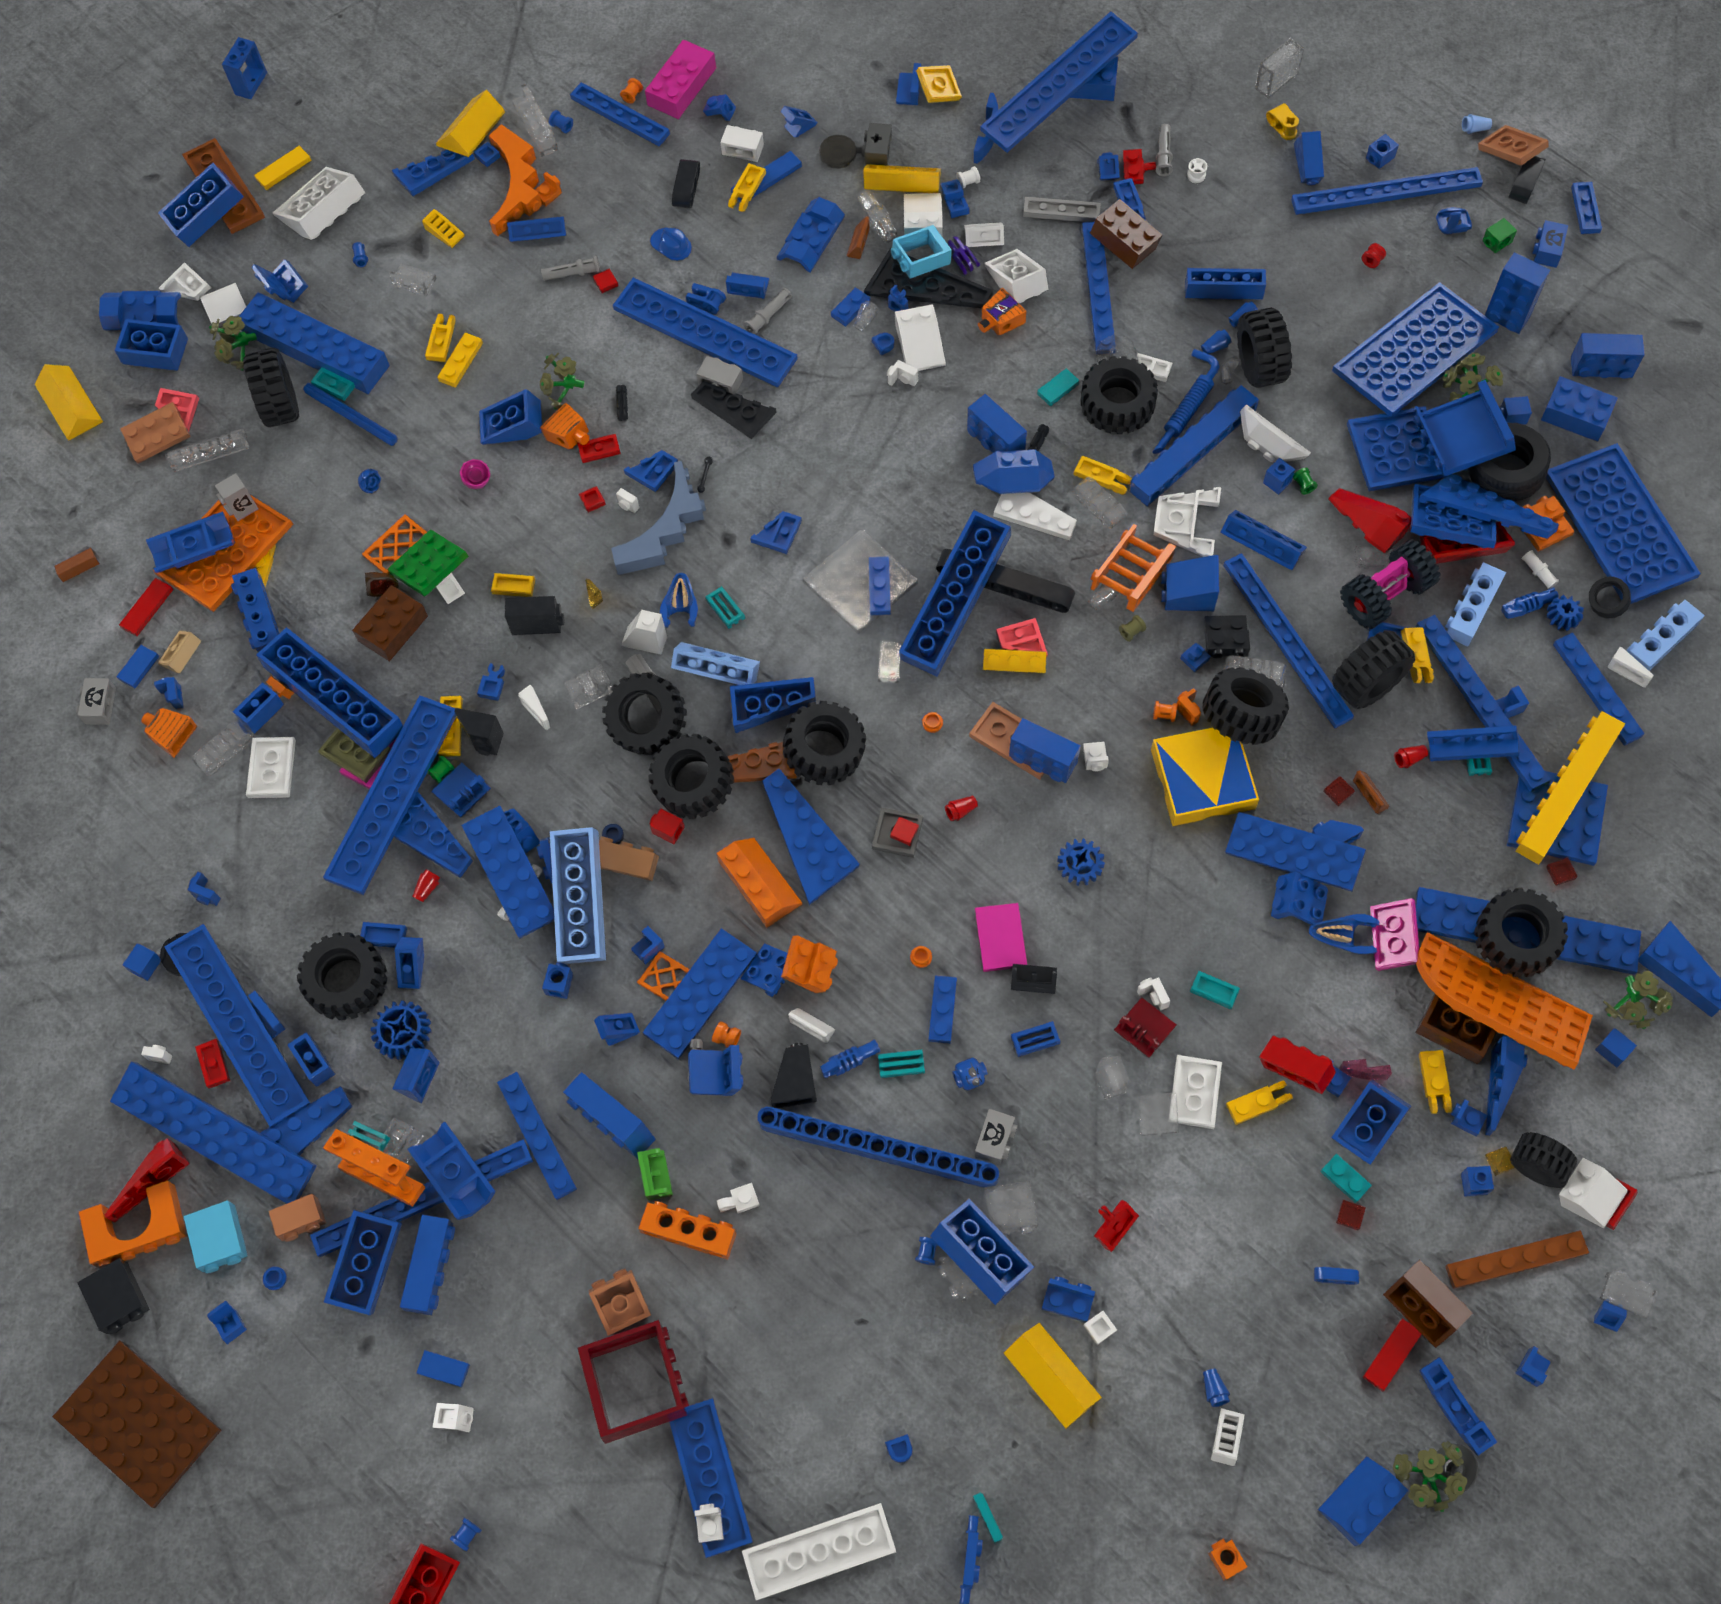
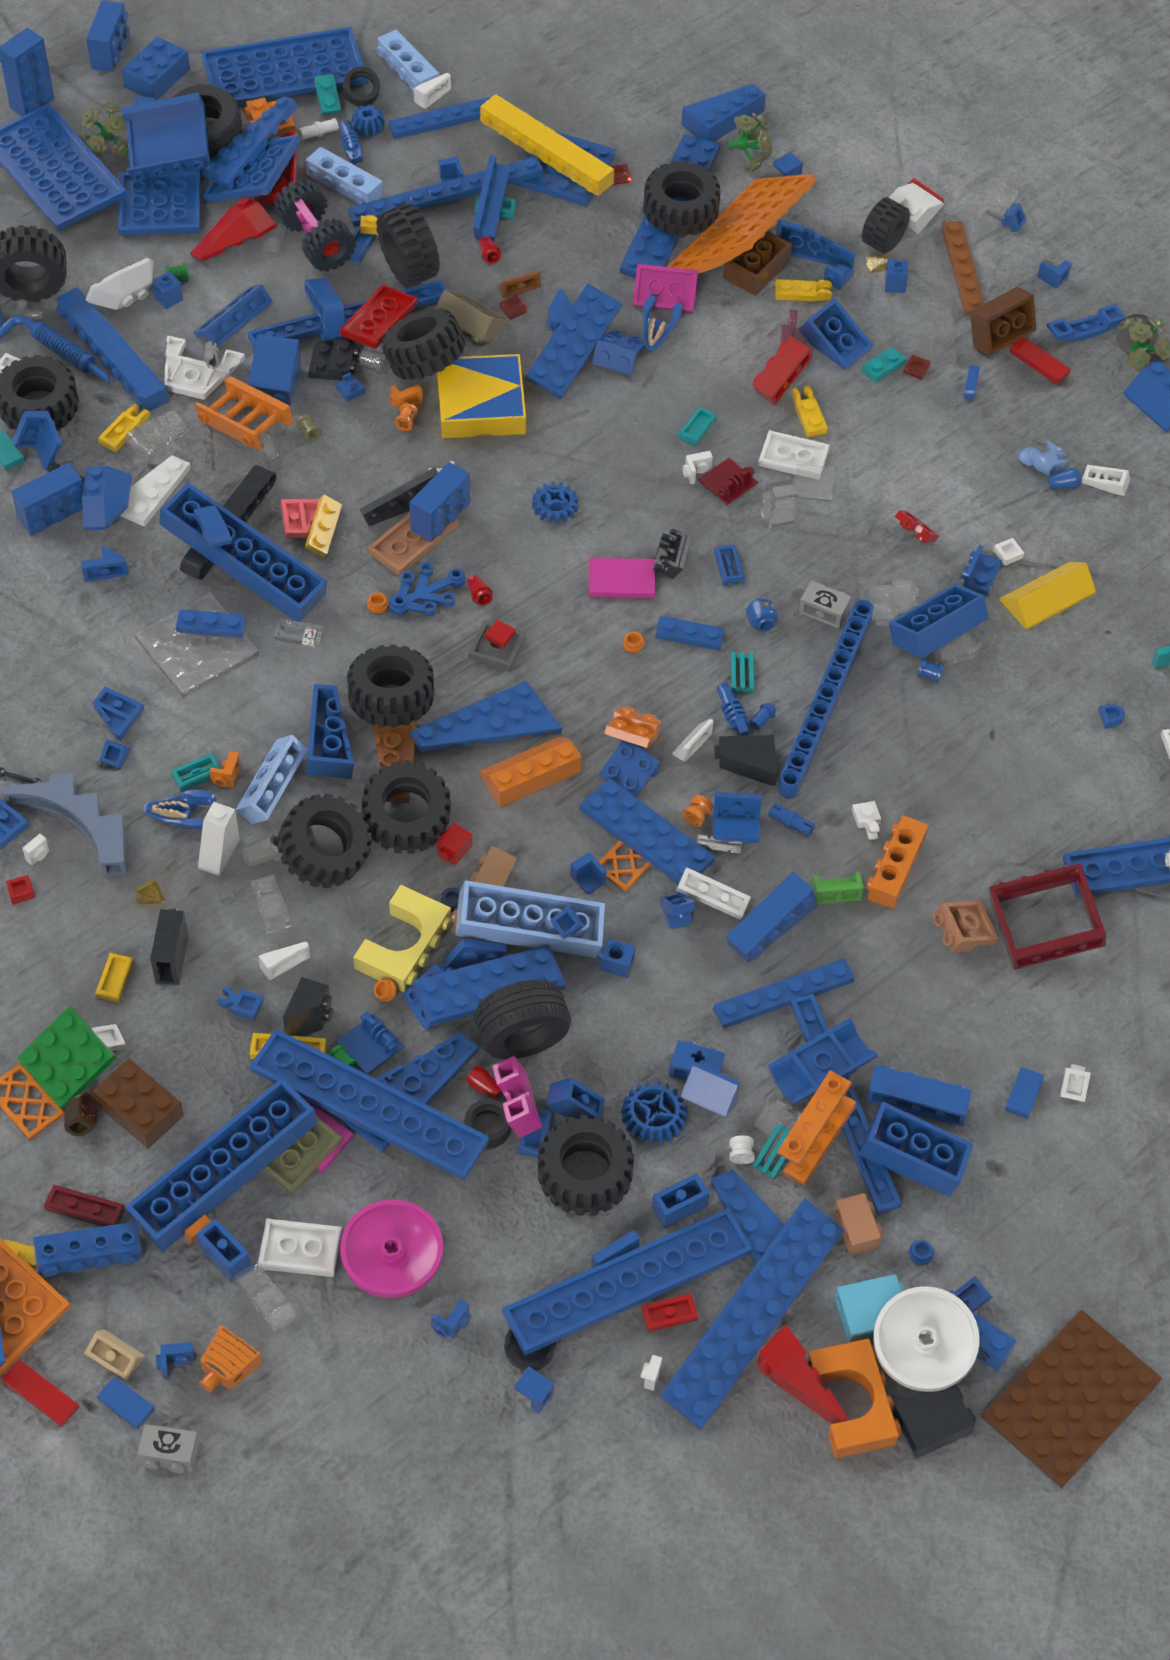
camera: 90 degrees left, 10 degrees down
(171, 1280) = (926, 1339): none -> white dish
(183, 1339) = (993, 1344): none -> blue brick
(261, 833) = (391, 1248): none -> dark pink dish
(303, 605) = (83, 1206): none -> dark red tile
(367, 1109) = (742, 1149): none -> white wheel
(393, 907) = (489, 1106): none -> black tyre
(419, 910) = (520, 1105): none -> dark pink arch
(448, 1052) = (687, 1053): none -> blue brick
(466, 900) = (522, 1019): none -> black tyre
(511, 792) = (385, 990): none -> orange plate
(533, 800) = (402, 966): none -> light yellow arch
(570, 926) = (567, 922): none -> blue slope
(631, 1057) = (713, 893): none -> white plate
(725, 631) = (228, 774): none -> orange bracket
(729, 1126) = (791, 819): none -> blue pin
(738, 541) = (114, 753): none -> blue slope
(847, 1087) = (762, 716): none -> blue pin
(937, 492) = (107, 567): none -> blue slope
(952, 759) = (425, 592): none -> blue plant
(960, 555) = (213, 526): none -> blue slope
(1053, 719) = (396, 501): none -> black wing
(1074, 399) = (38, 431): none -> blue bracket
(1202, 528) = (212, 355): none -> light grey pin
(1235, 1365) = (1046, 462): none -> medium blue animal
(1283, 663) = (378, 315): none -> red tile
(1285, 612) = (327, 306): none -> blue beam
(1312, 751) = (472, 316): none -> dark tan slope
(1591, 568) = (327, 94): none -> teal plate

